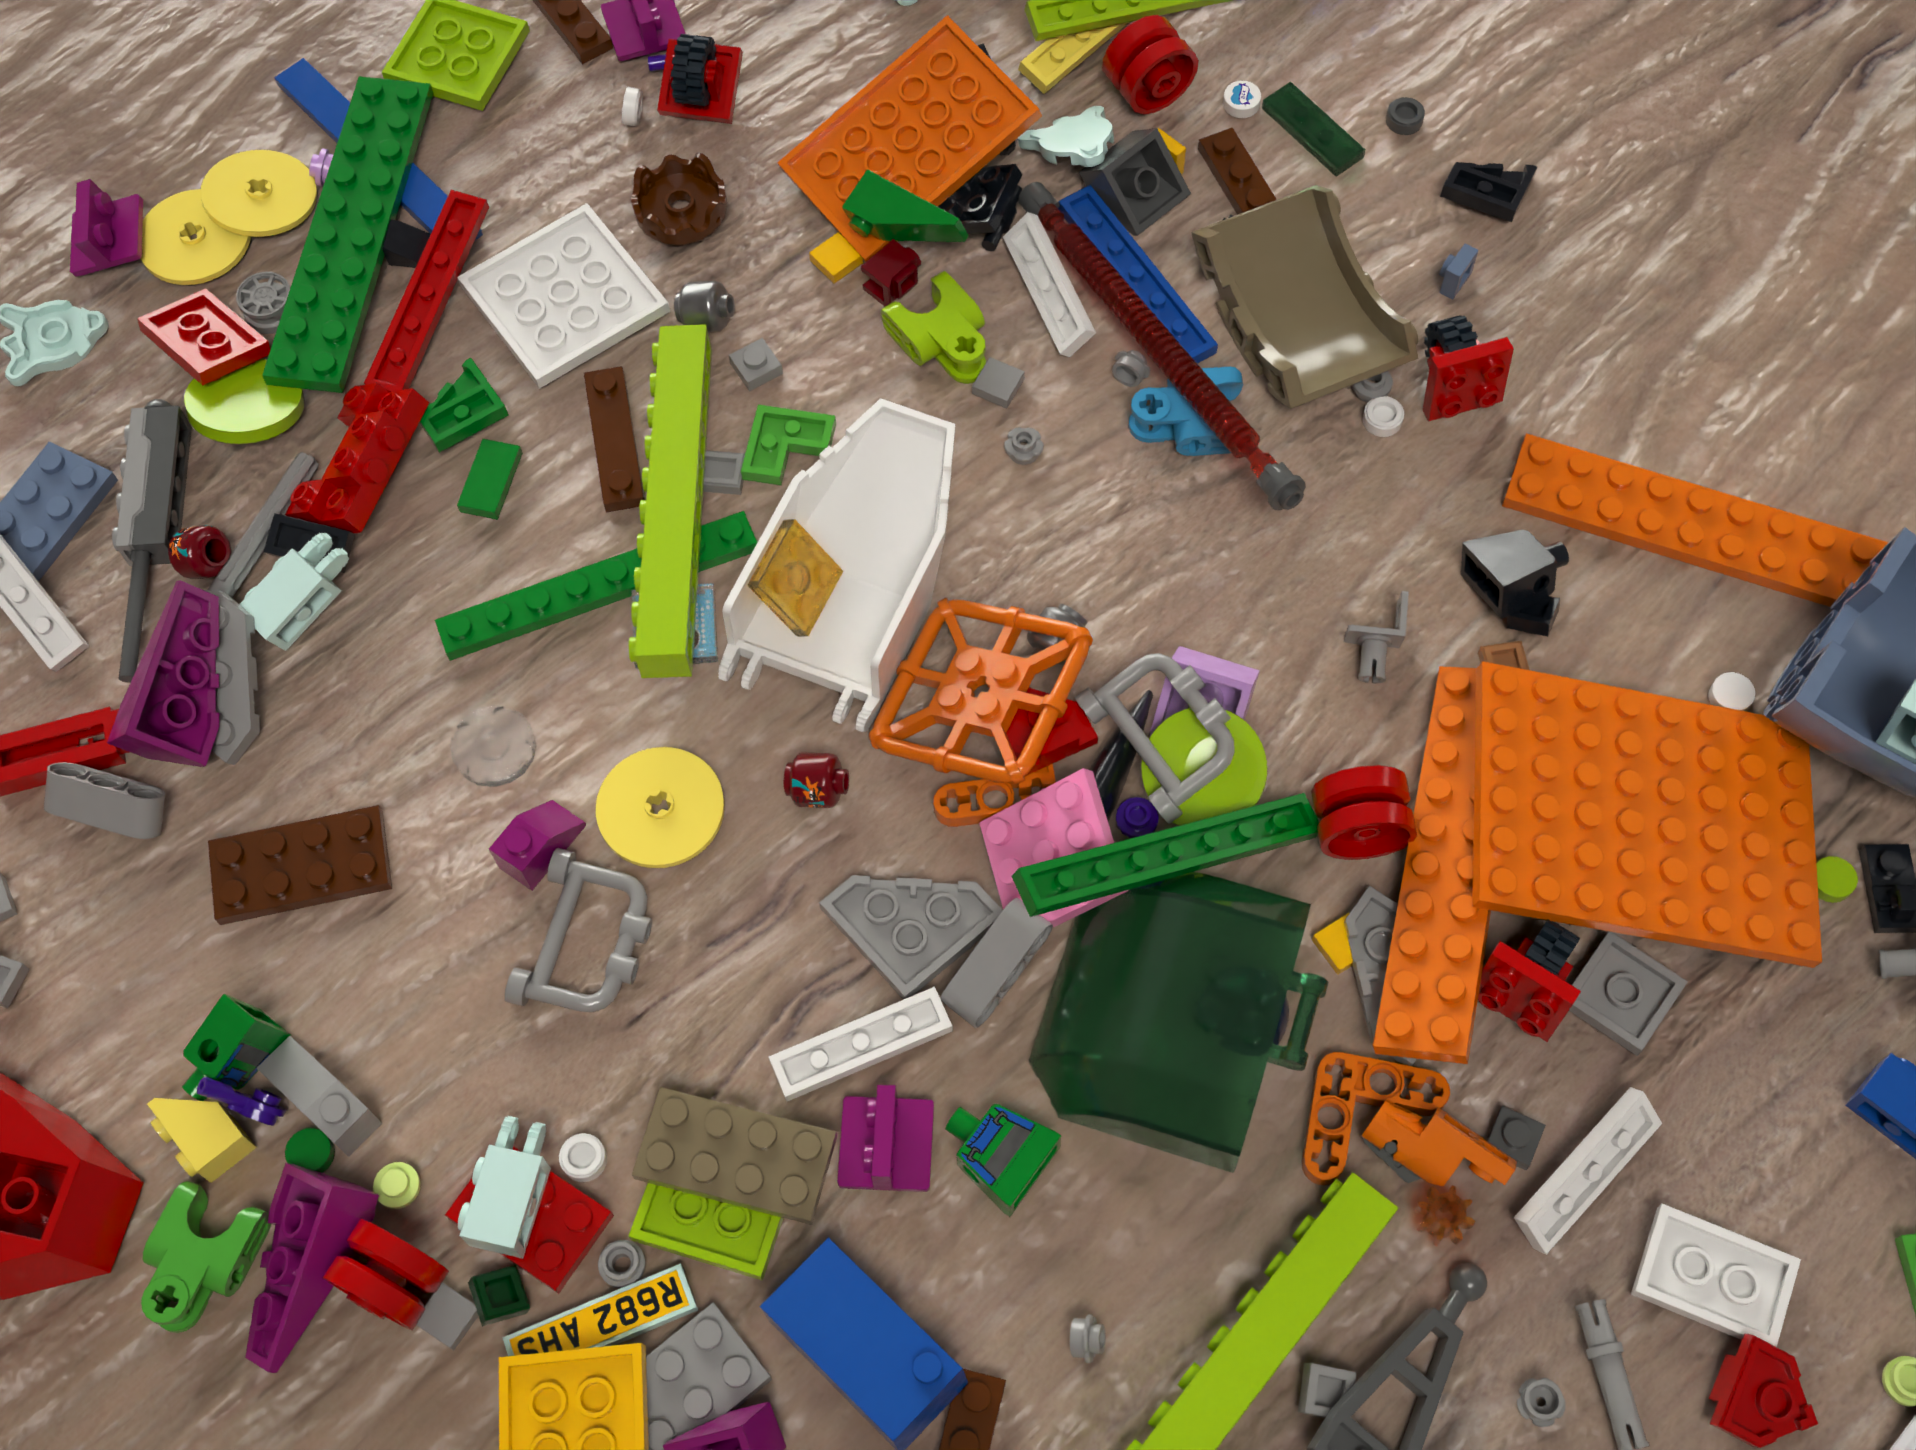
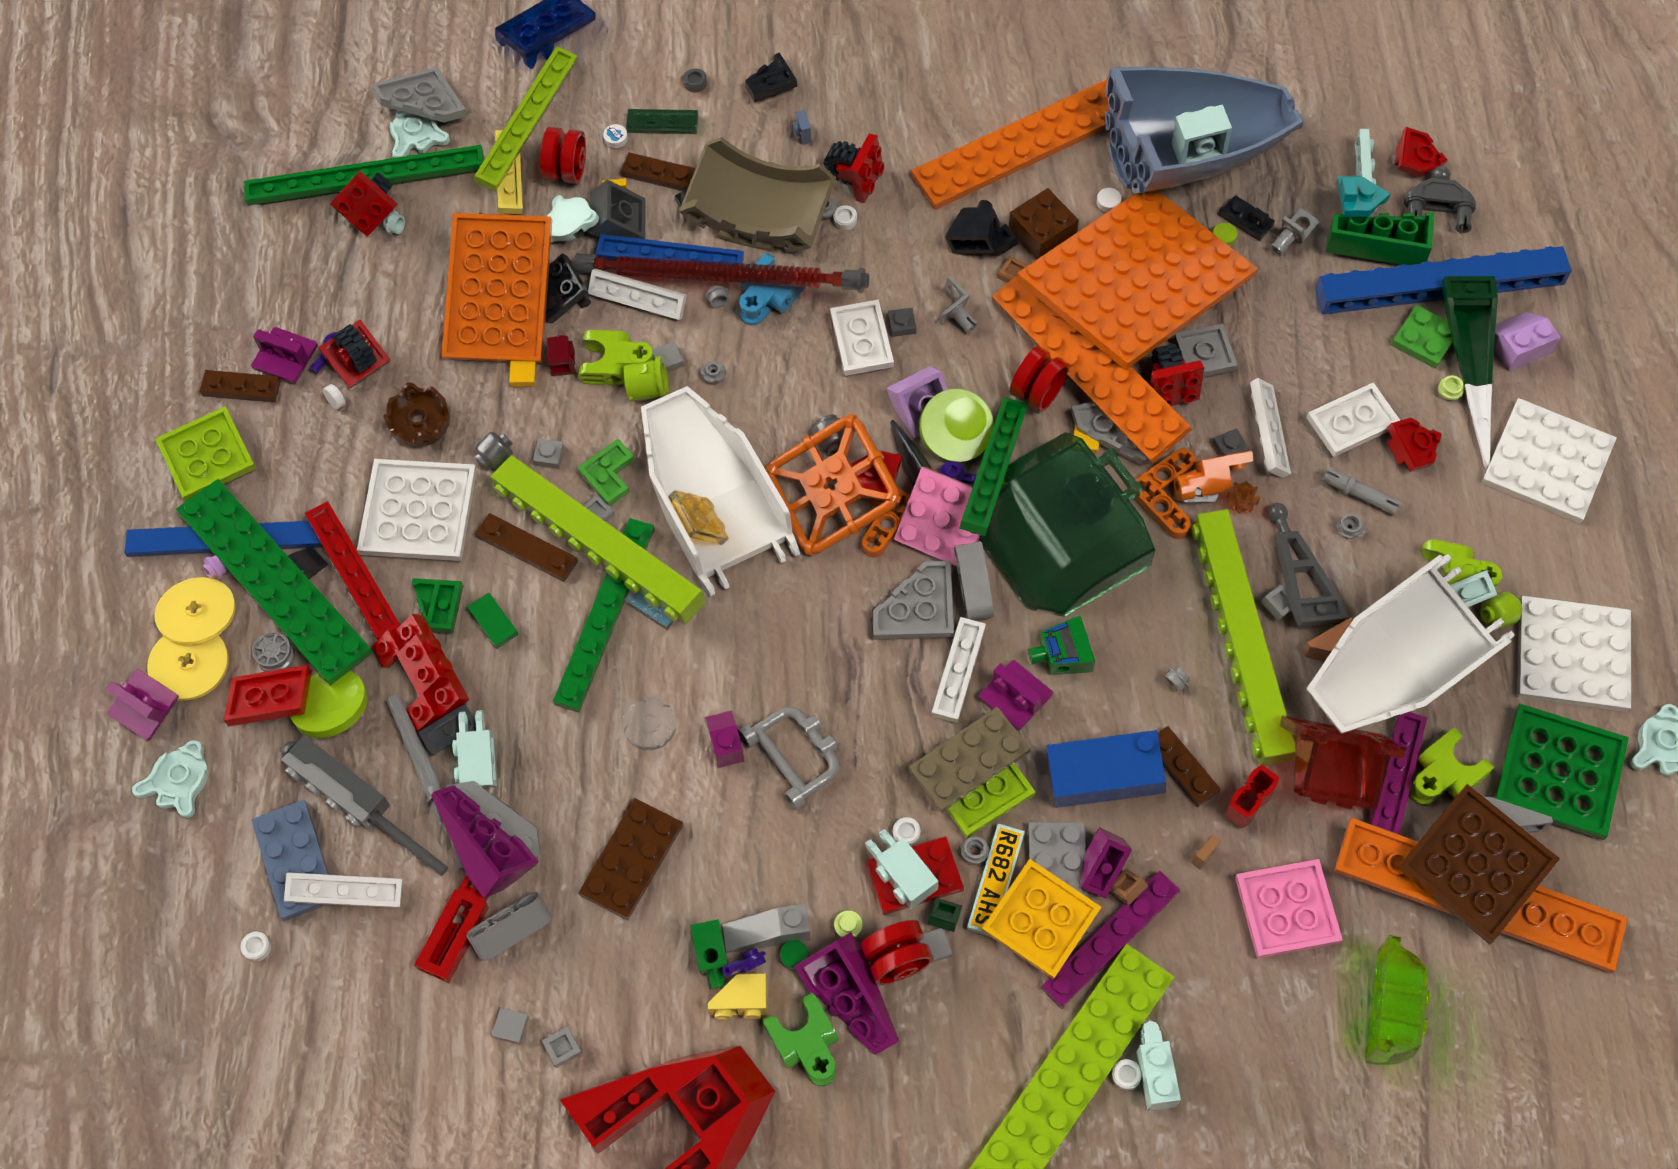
camera: 50 degrees left, 0 degrees up
(199, 551) = (403, 785): dark red head -> none
(671, 835) = (747, 689): light yellow piece -> none
(815, 780) = (809, 590): dark red head -> none
(897, 214) = (537, 324): green slope -> none
(938, 382) = (646, 380): none -> lime piece
(1211, 715) = (917, 396): light grey bar -> none
(1229, 565) = (861, 337): none -> white plate
(1299, 593) = (902, 322): none -> dark grey plate
(1607, 639) = (1042, 223): none -> reddish brown brick

